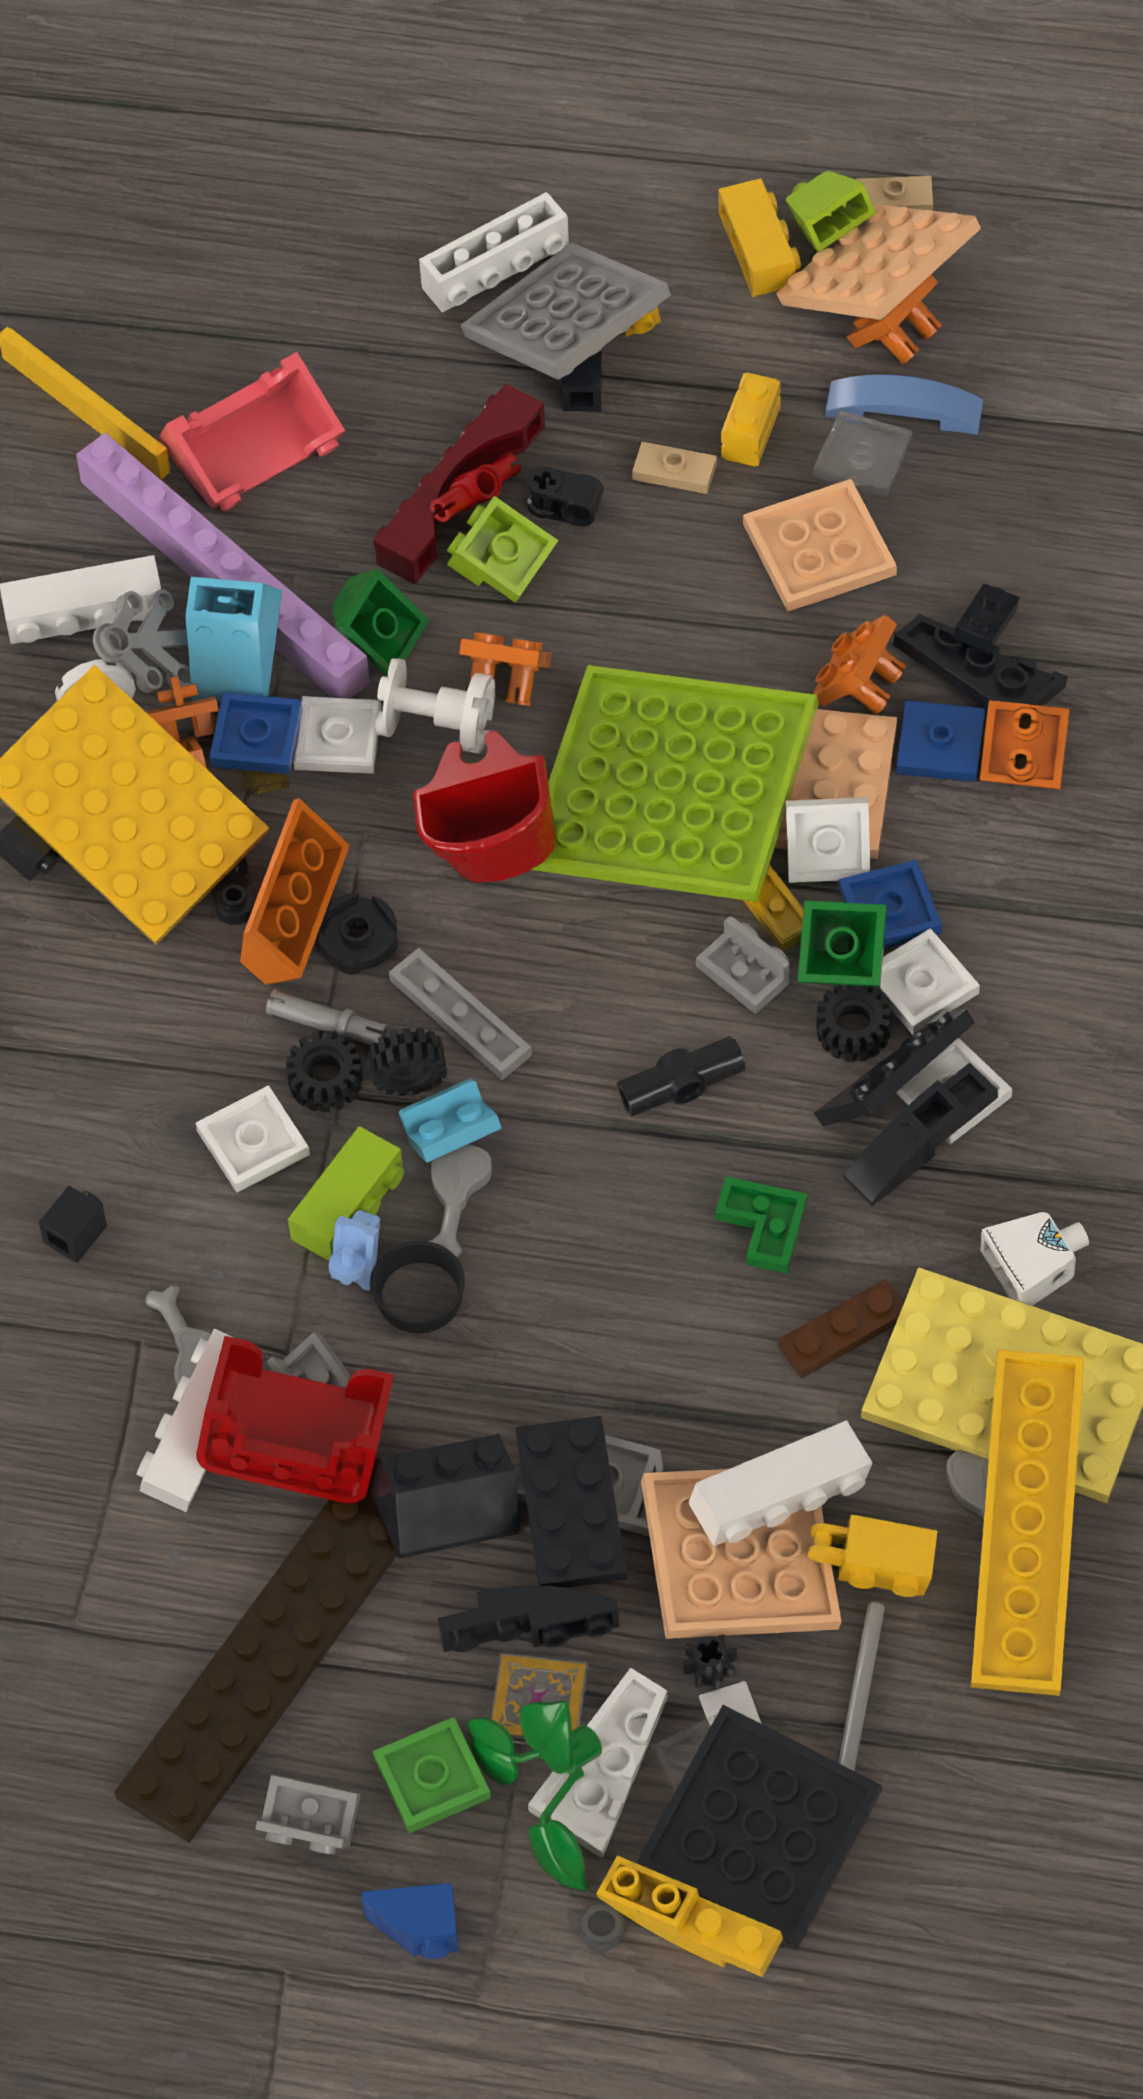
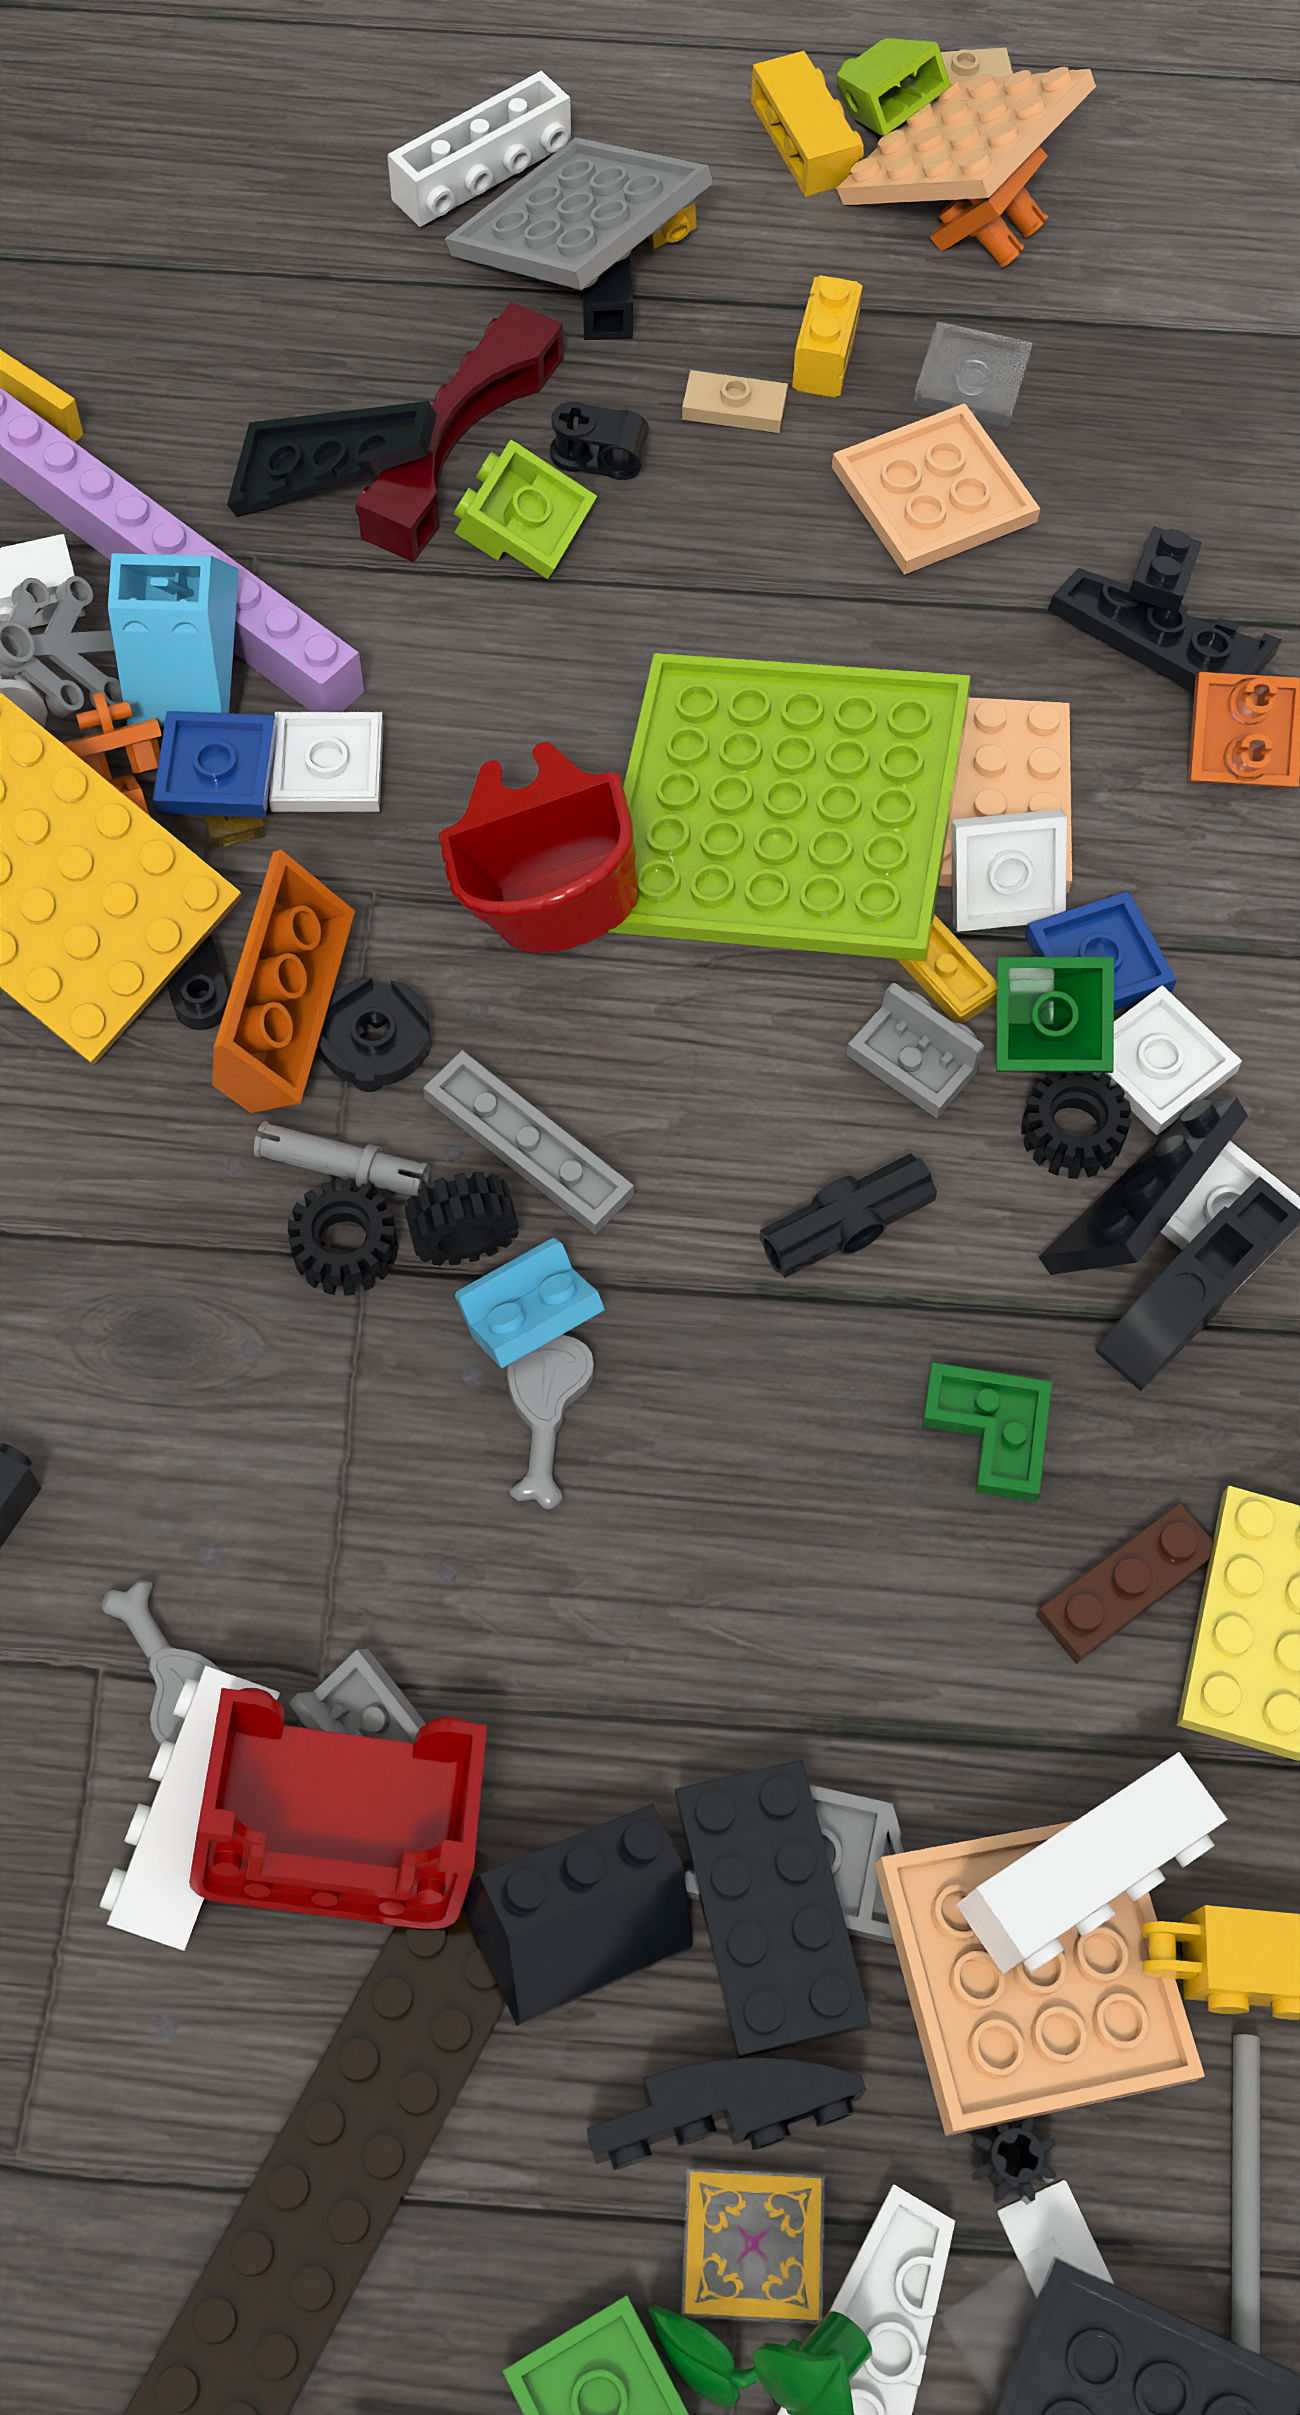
camera: 10 degrees left, 5 degrees up
(252, 1138) = (246, 1345): white plate -> none
(253, 434) = (187, 378): coral windscreen -> none
(350, 497) = (323, 450): none -> black wing
(350, 1183) = (389, 1424): lime brick -> none
(355, 1249) = (409, 1514): light blue hips -> none
(378, 618) = (370, 607): green slope -> none
(418, 1253) = (500, 1505): black tyre -> none
(450, 707) = (478, 716): white piece -> none
(475, 487) = (483, 431): red pin -> none
(523, 657) = (521, 639): orange plate -> none
(854, 662) = (1011, 632): orange plate -> none
(906, 397) = (1019, 303): medium blue slope -> none
(940, 741) = (1129, 732): blue plate -> none

